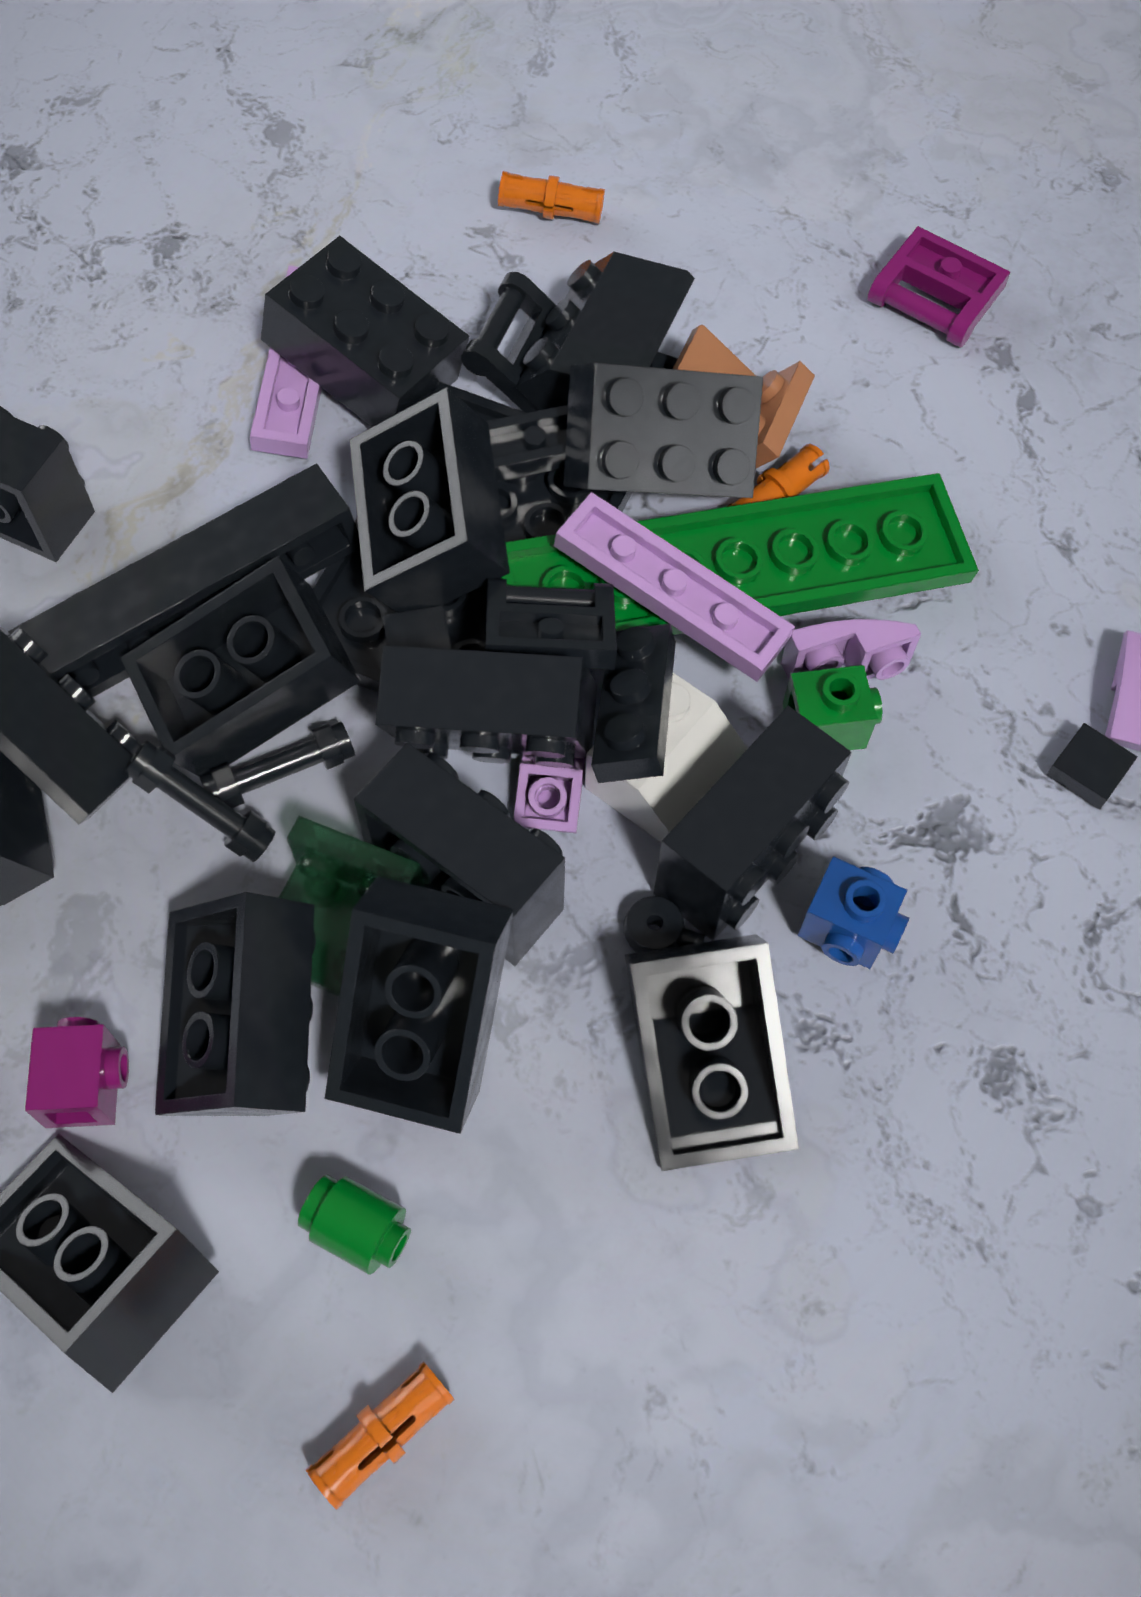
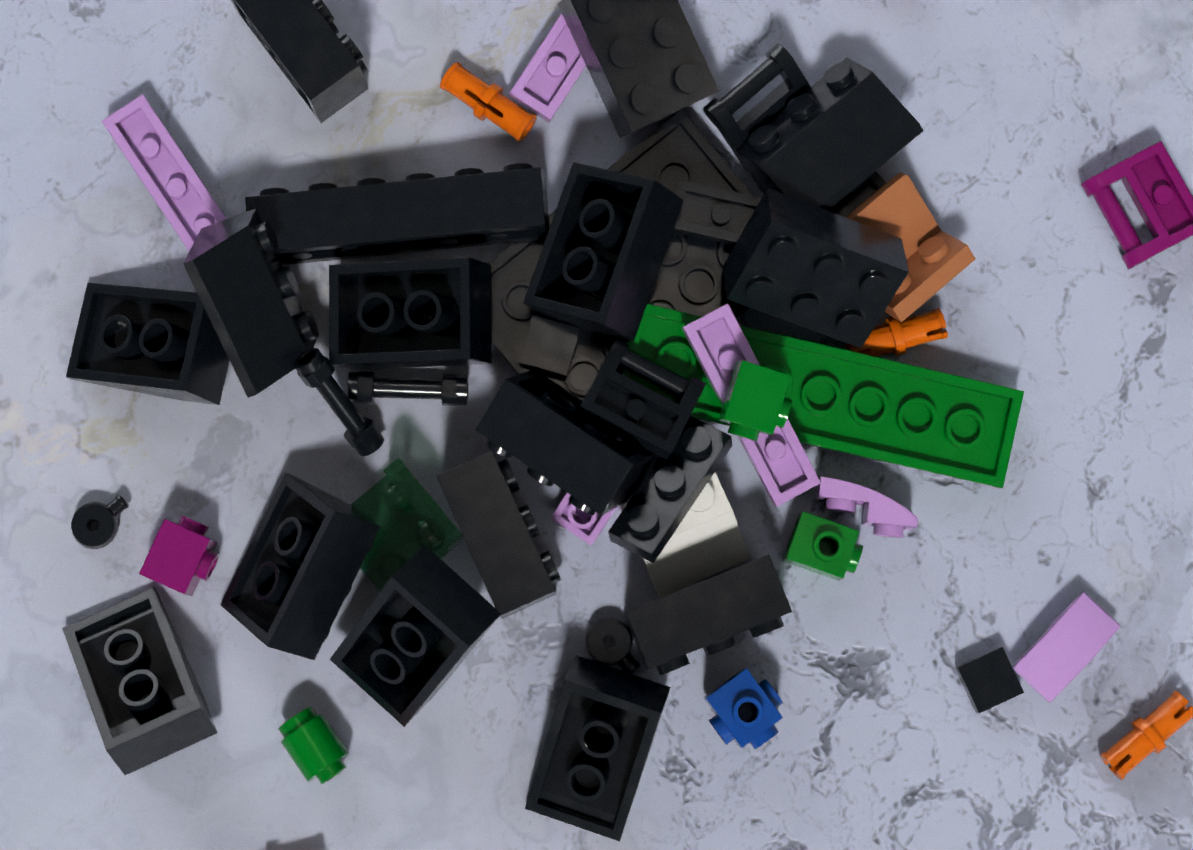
camera: 25 degrees right, 20 degrees up
(231, 461) = (488, 101): none -> orange pin
(677, 557) = (755, 401): none -> green brick

